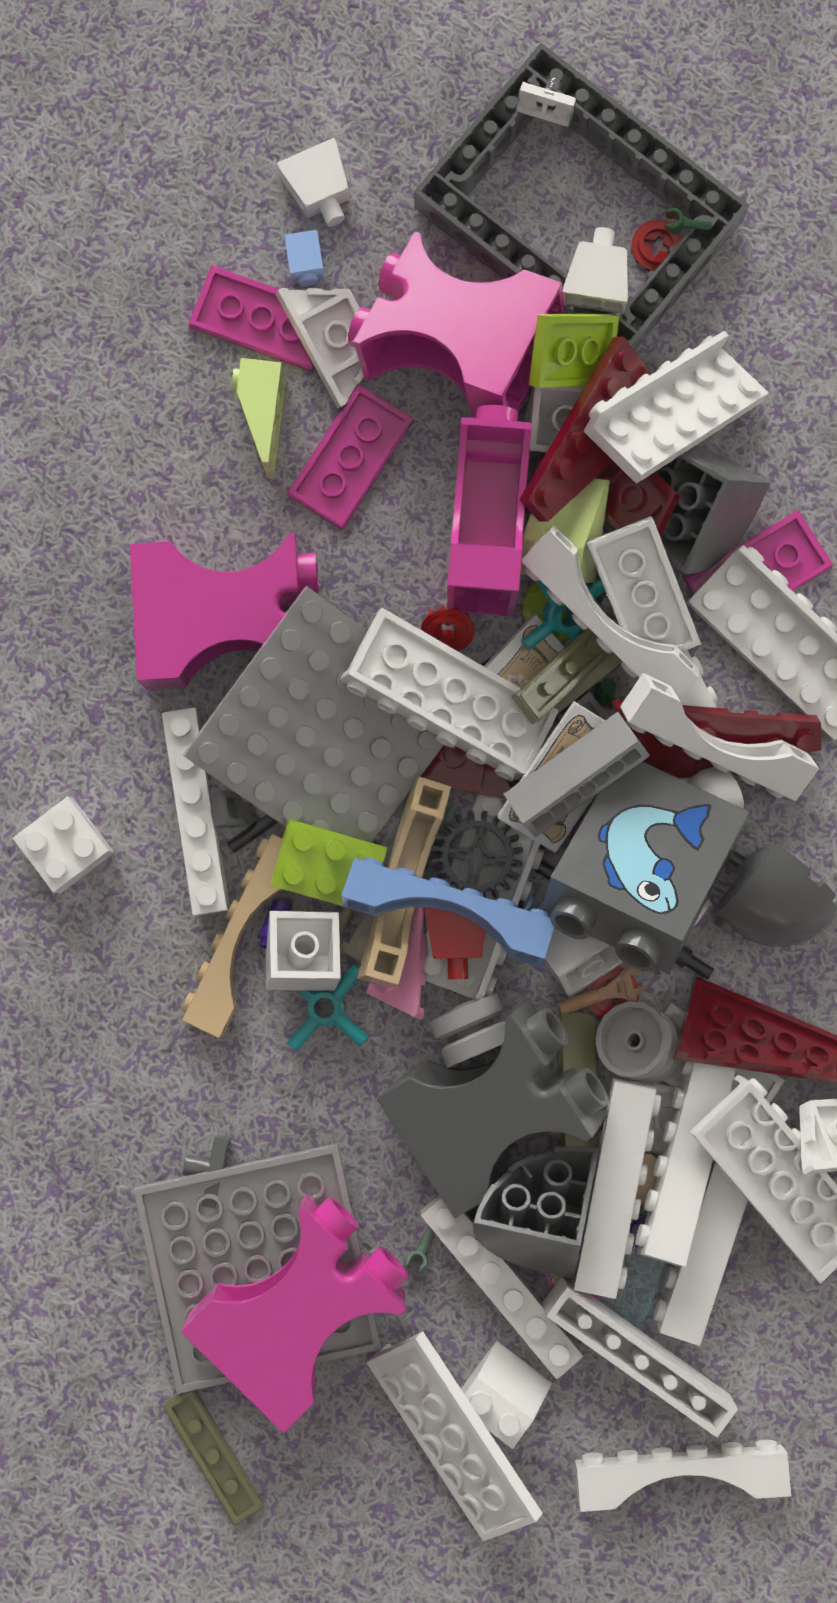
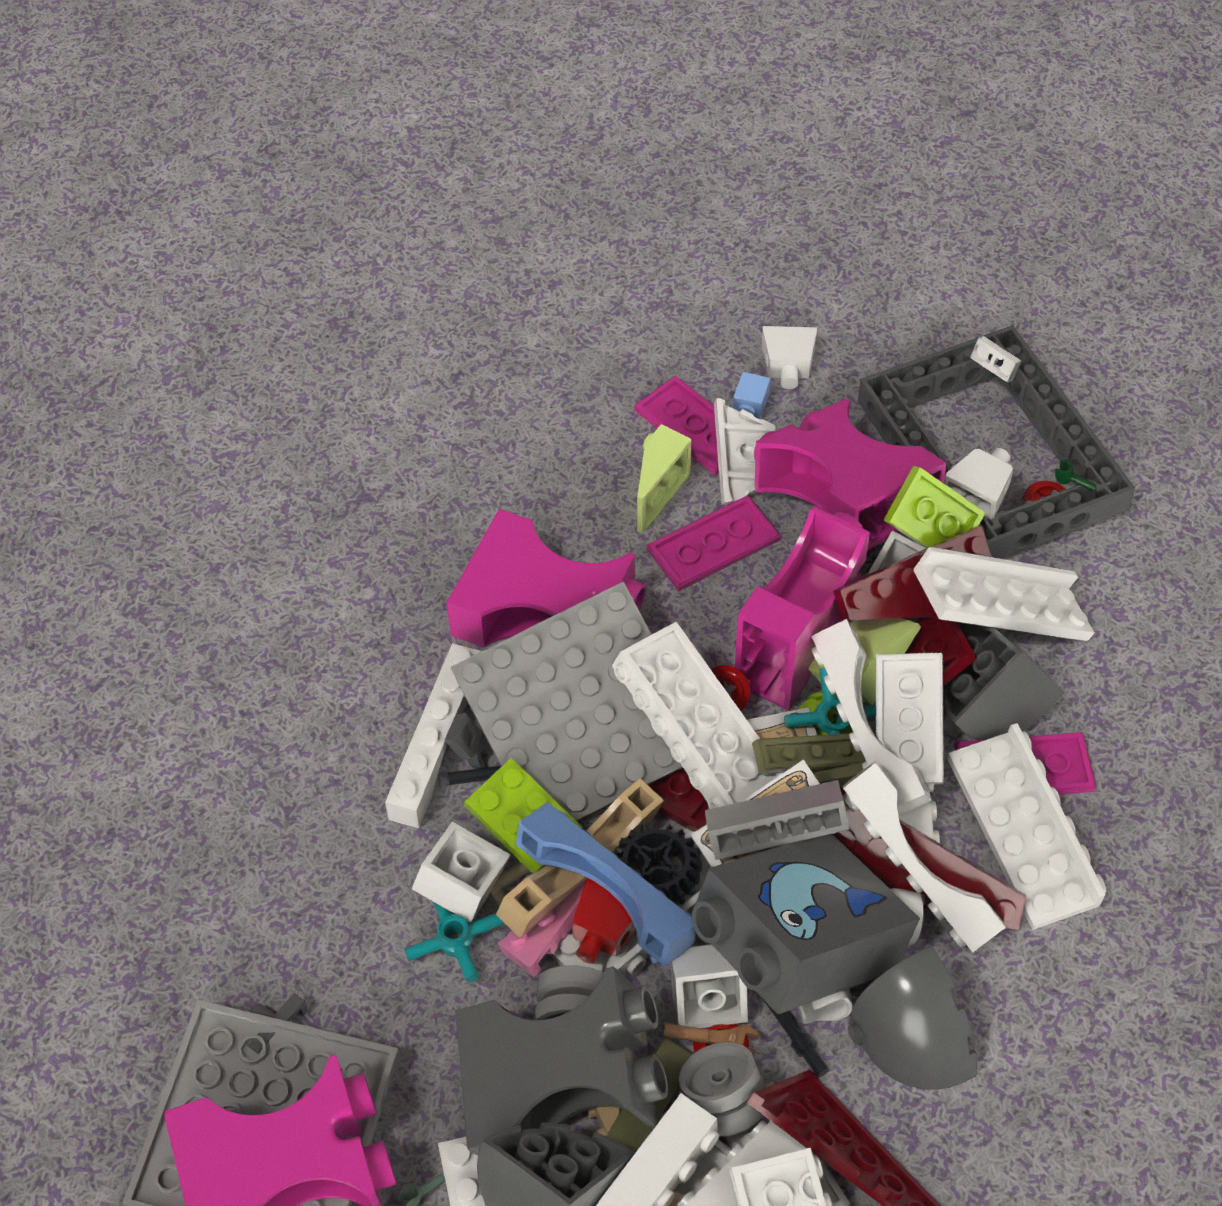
camera: 25 degrees right, 30 degrees down
(63, 845) = (312, 711): white brick -> none
(215, 997) = (362, 884): tan arch -> none

